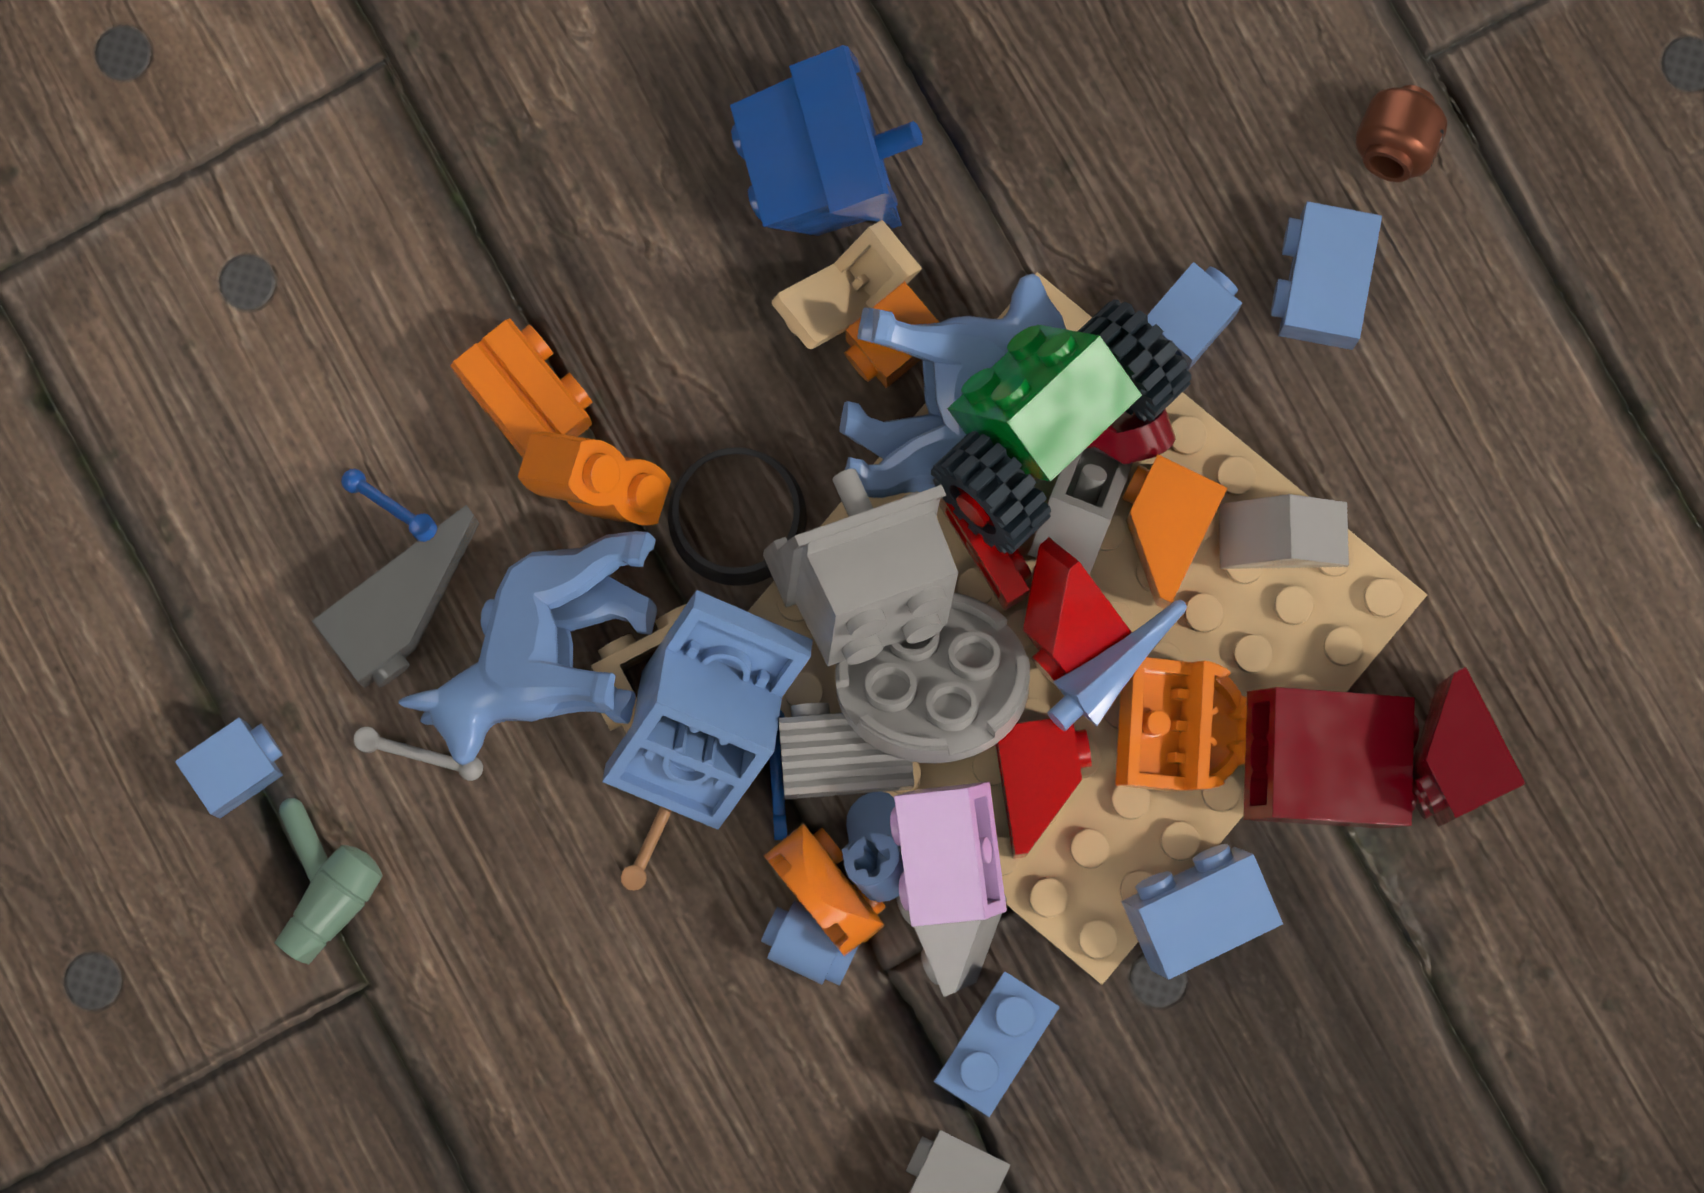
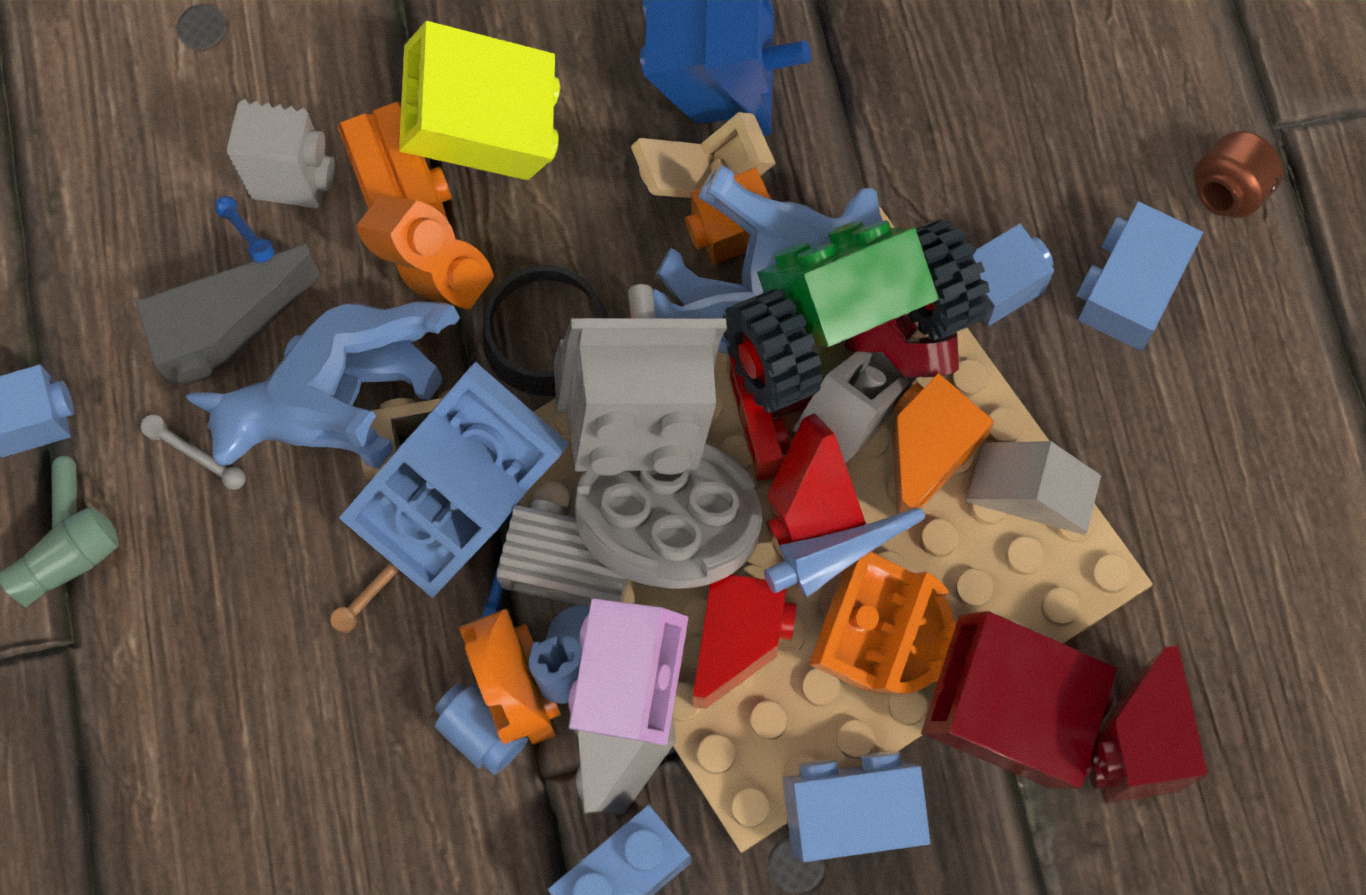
camera: 20 degrees right, 10 degrees down
(405, 417) = (280, 155): none -> light grey brick
(591, 295) = (478, 101): none -> neon yellow brick

